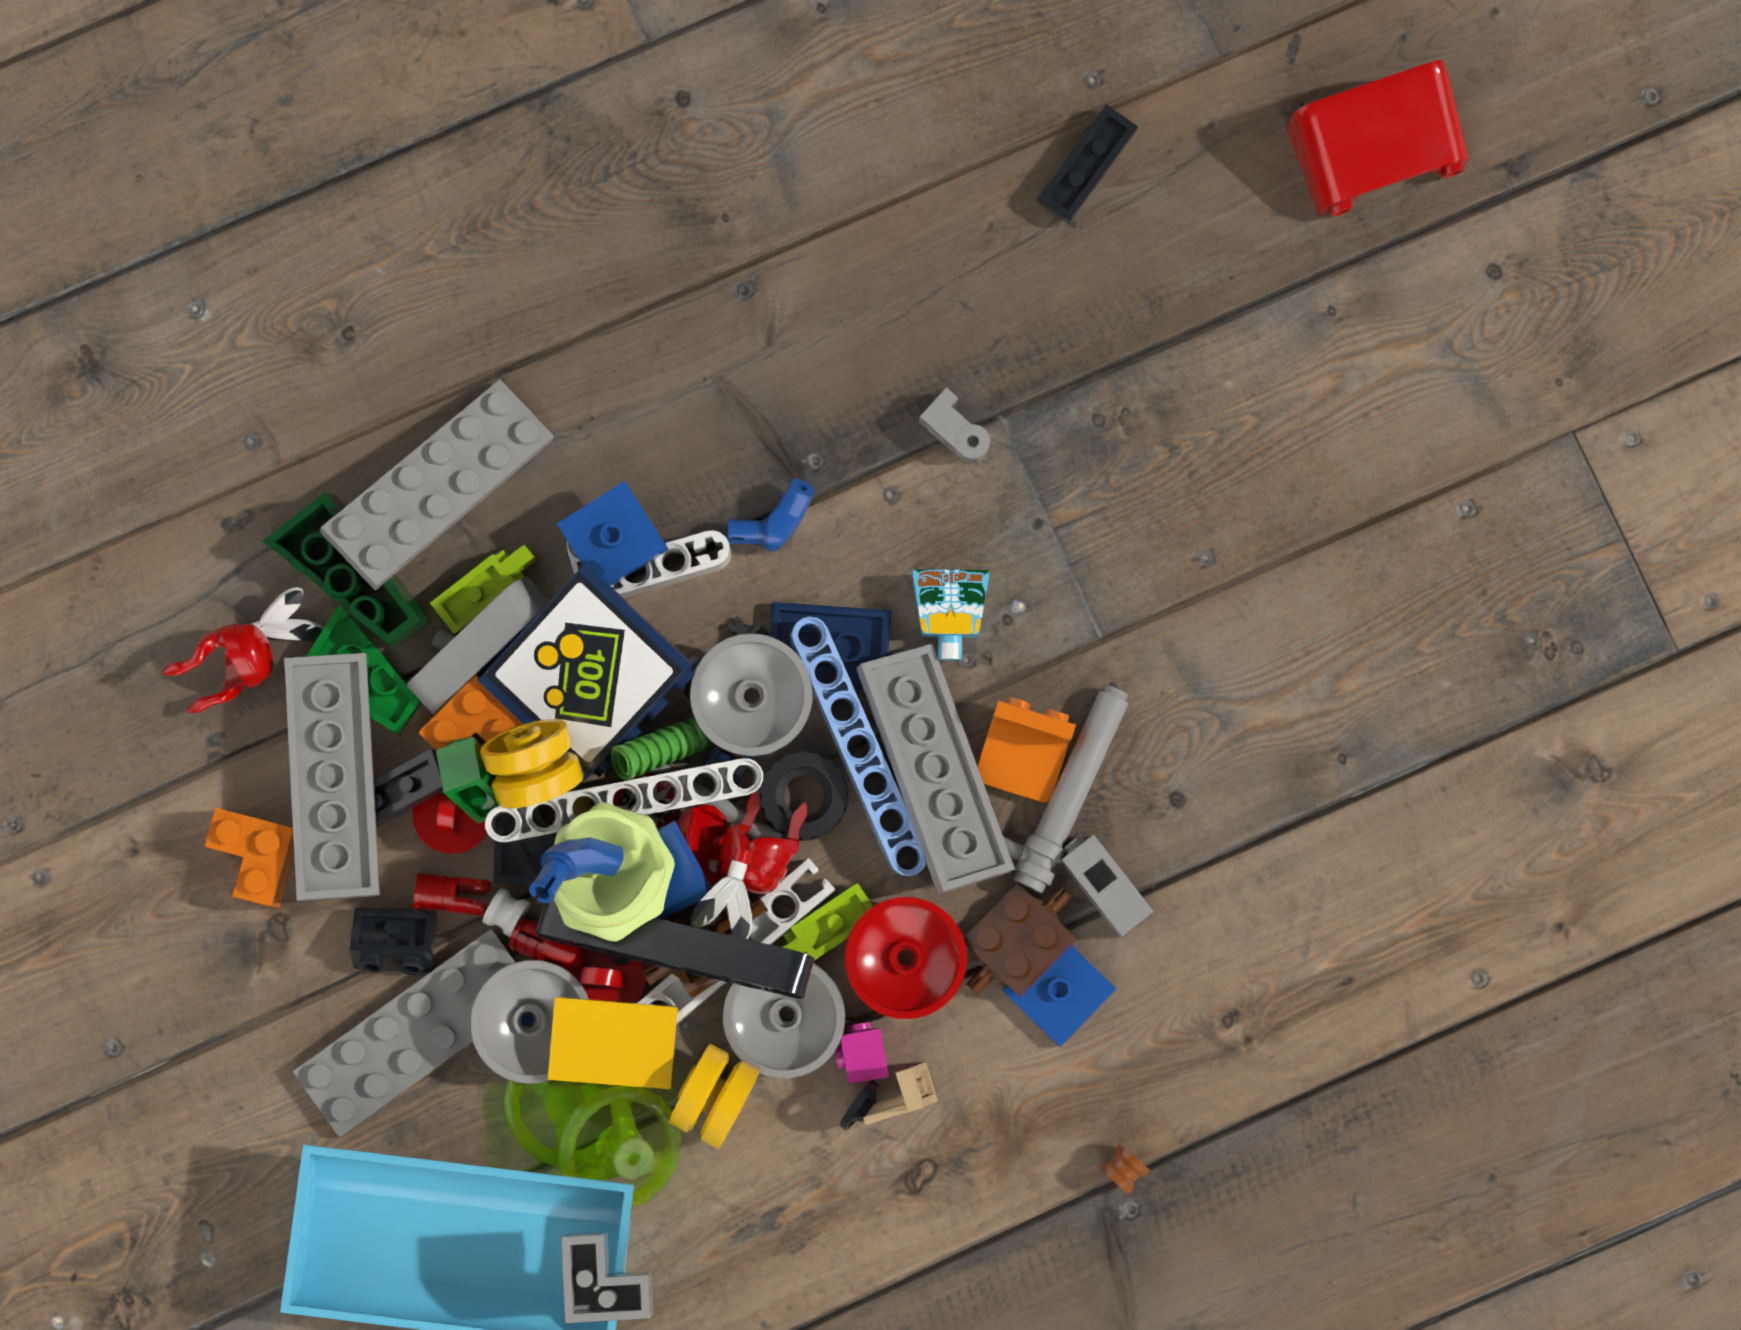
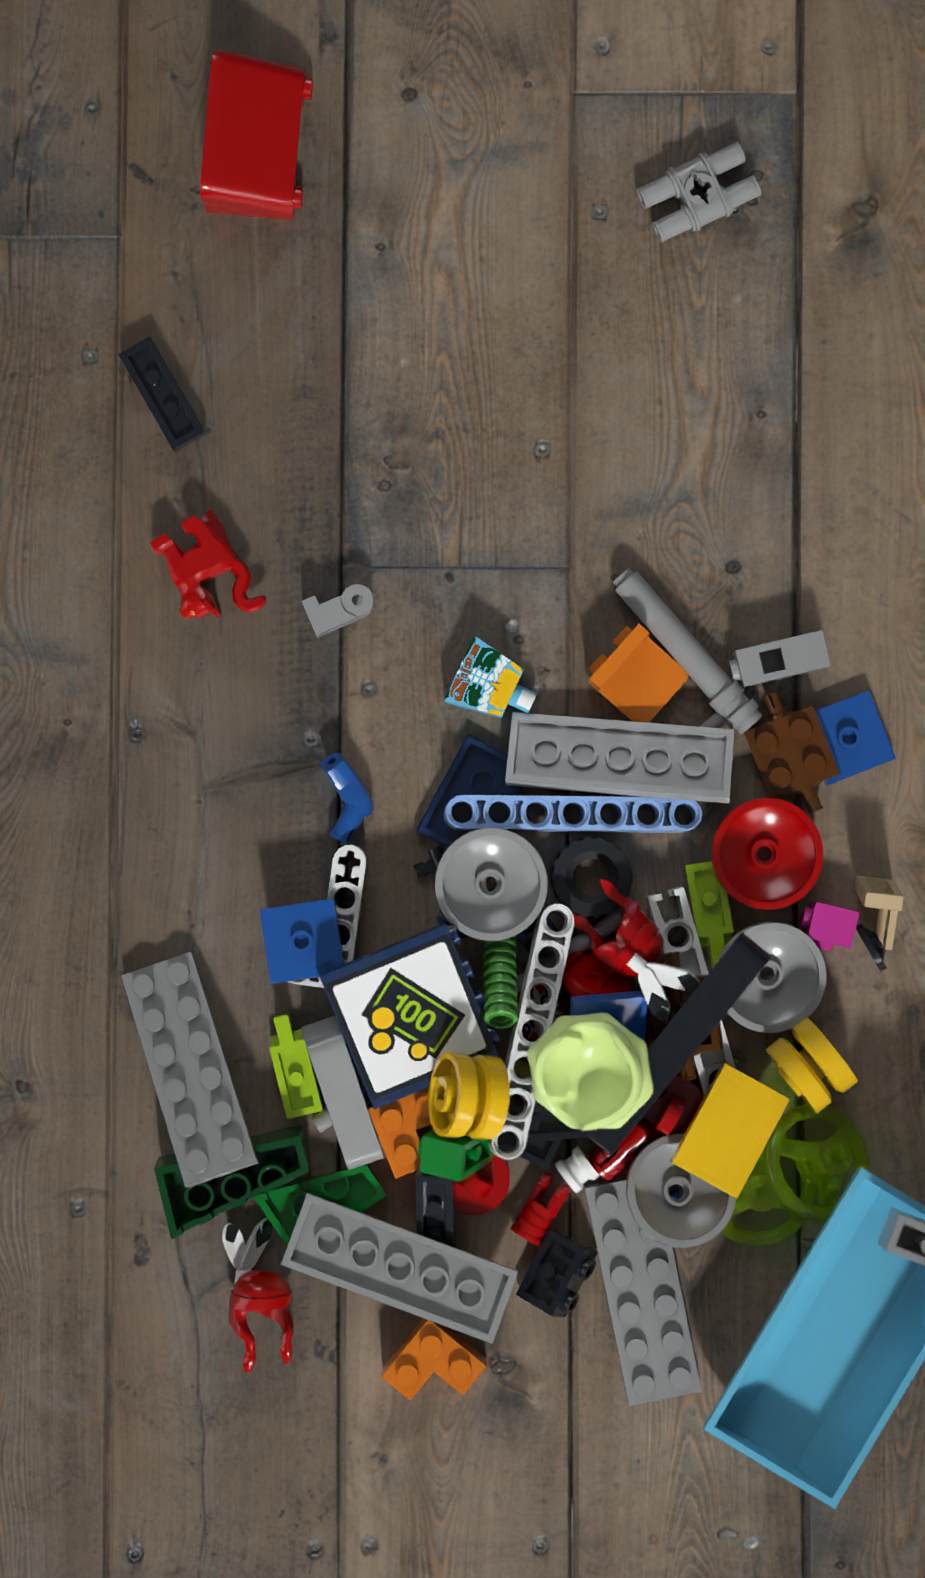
camera: 65 degrees left, 5 degrees up
(573, 859) = (569, 1099): blue arm -> none
(941, 277) = (203, 562): none -> red animal
(1554, 591) = (694, 210): none -> light grey pin

